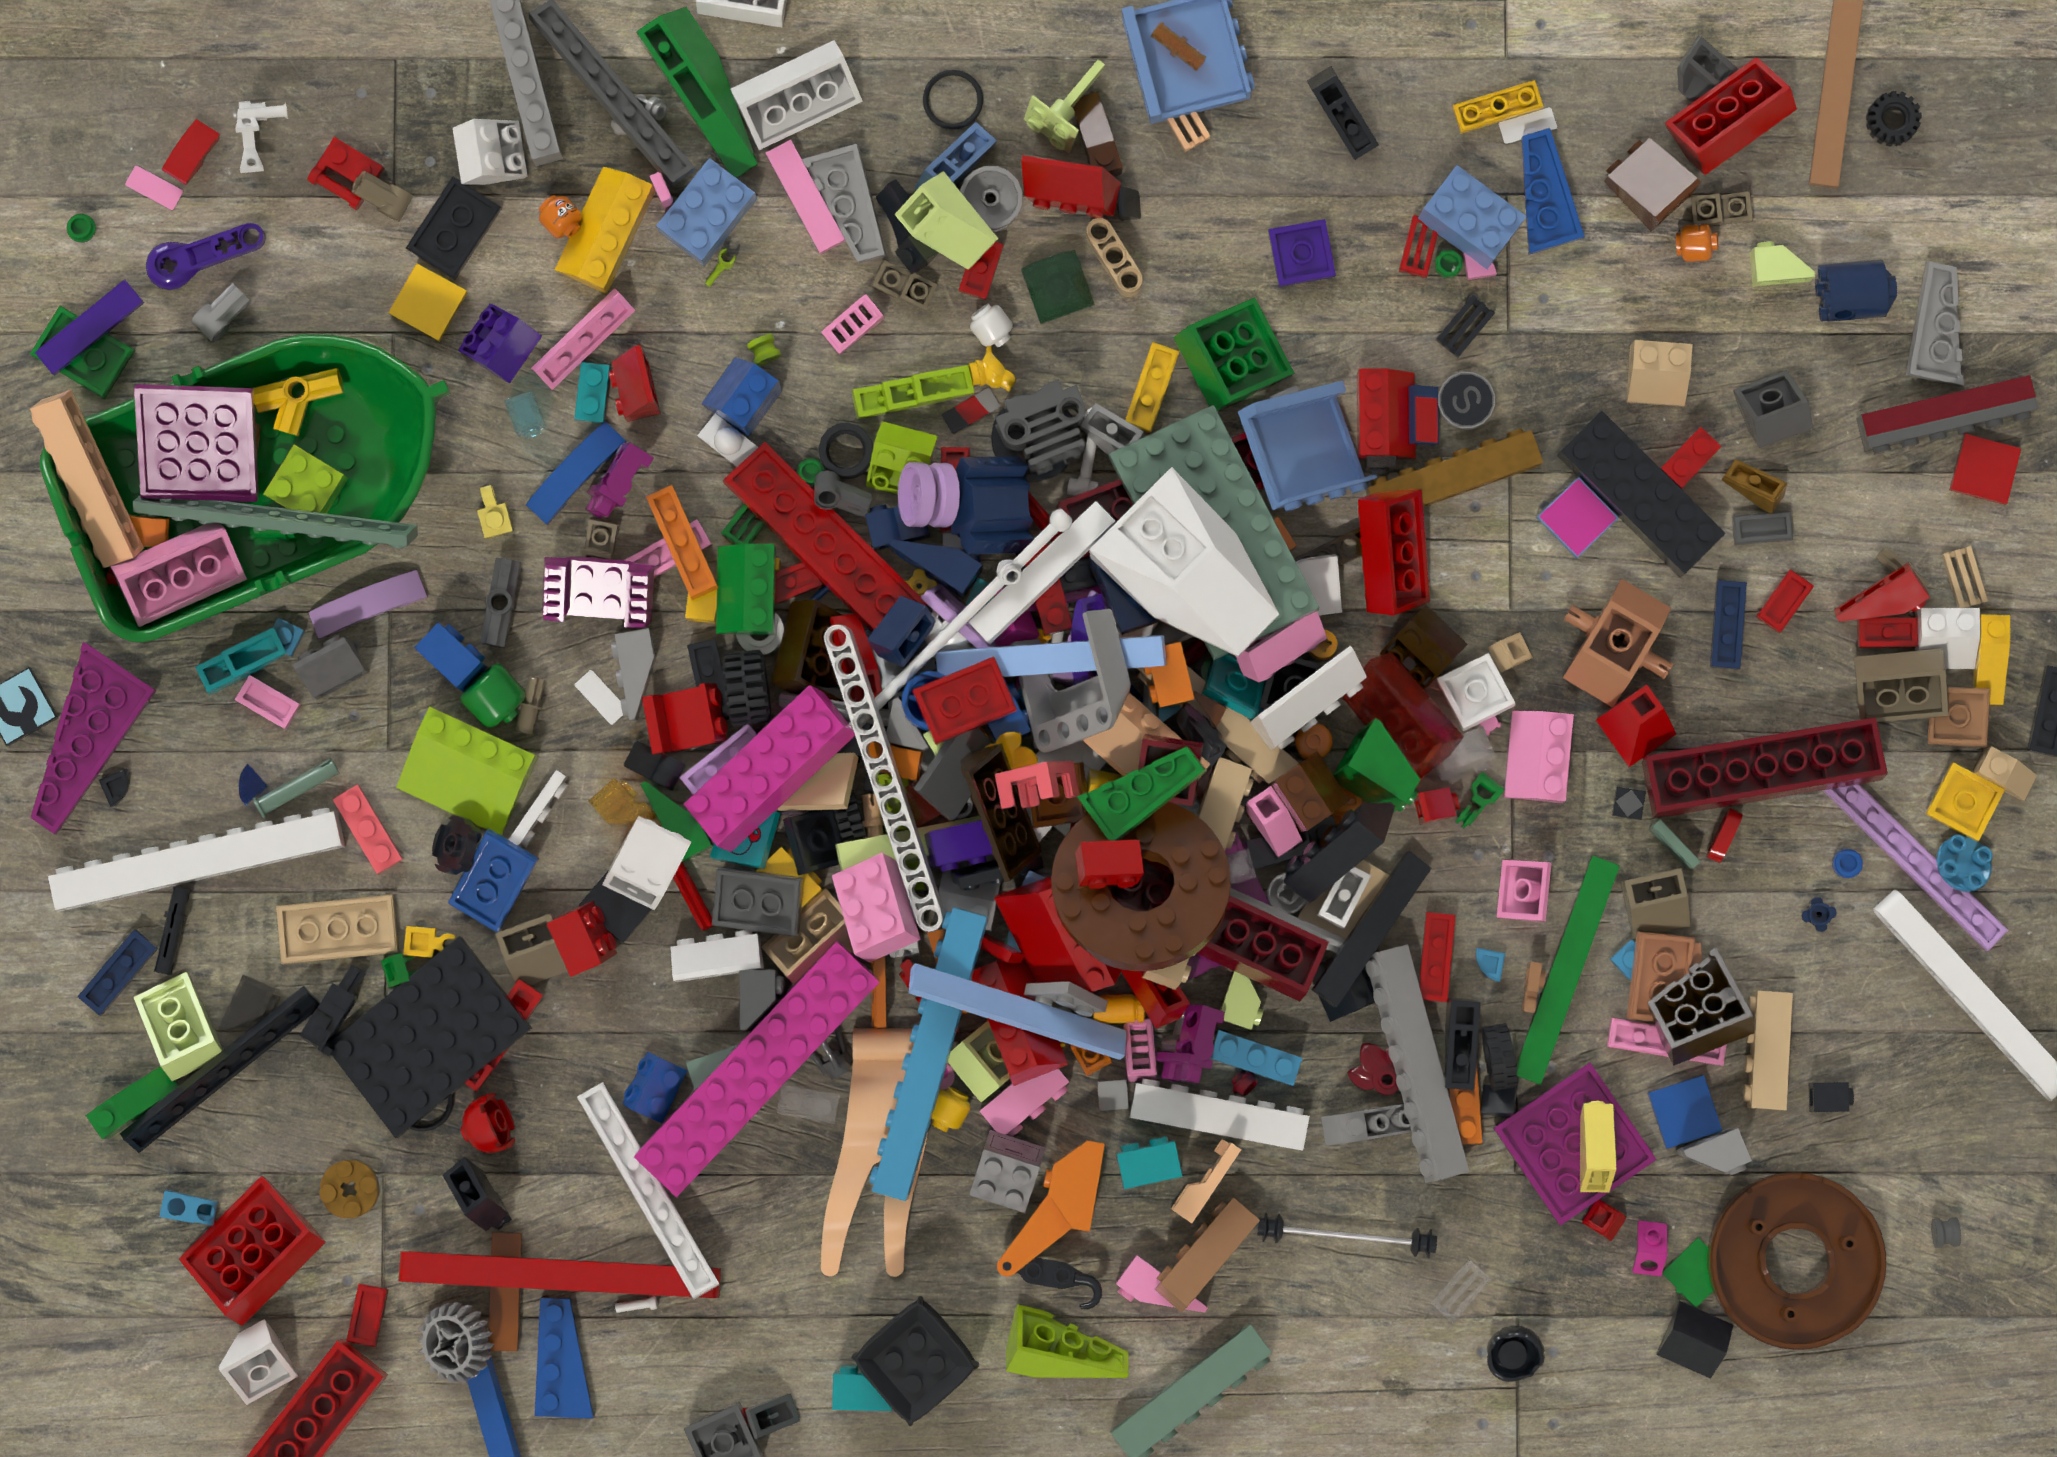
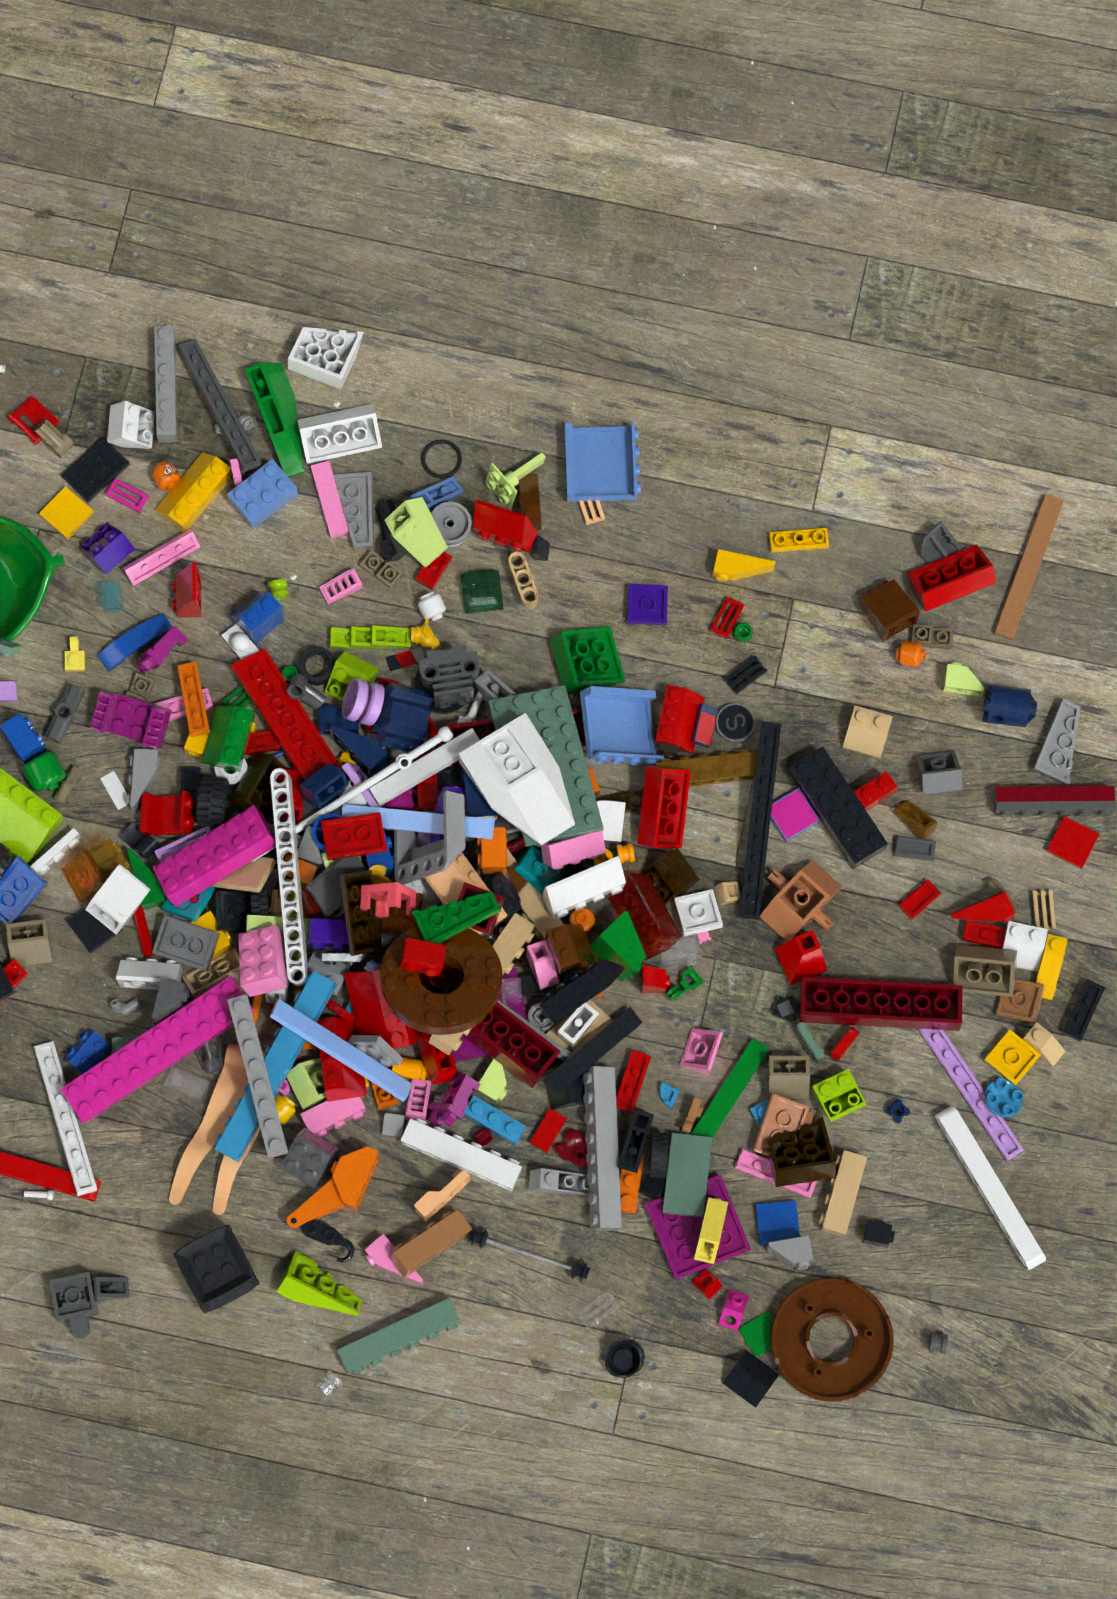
camera: 10 degrees right, 10 degrees down
(506, 267) = (109, 494): none -> dark pink tile
(582, 938) = (63, 940): red brick -> none
(587, 835) = (83, 875): none -> clear orange tile
(592, 392) = (159, 593): teal plate -> none
(691, 1012) = (124, 1008): none -> light grey arm
(720, 267) = (264, 531): lime hand -> none
(855, 1392) = (171, 1282): teal slope -> none
(910, 1079) = (257, 1076): none -> light grey brick
(1148, 1163) = (404, 1172): teal brick -> none
(1152, 387) = (529, 668): yellow tile -> none
(1178, 46) = (596, 456): clear orange pin -> none
(1332, 1053) = (548, 1131): none -> red tile
(1342, 113) = (695, 521): black slope -> none
(1352, 628) = (625, 853): none -> light orange wheel
(1414, 167) = (736, 566): none -> yellow slope
(1471, 217) = (765, 605): medium blue brick -> none
(1475, 270) = (762, 638): bright pink tile -> none
(1515, 128) = (816, 556): white sticker -> none
(1535, 539) = (760, 820): none -> black plate
(1538, 756) = (731, 964): bright pink slope -> none
(1545, 1075) = (687, 1175): none -> sand green tile
(1548, 200) = (818, 610): blue wing -> none
(1728, 624) = (877, 906): dark blue plate -> none
(1733, 914) = (838, 1095): none -> lime slope
(1847, 863) = (924, 1081): blue tile -> none
(1889, 135) = (1059, 591): black tyre -> none

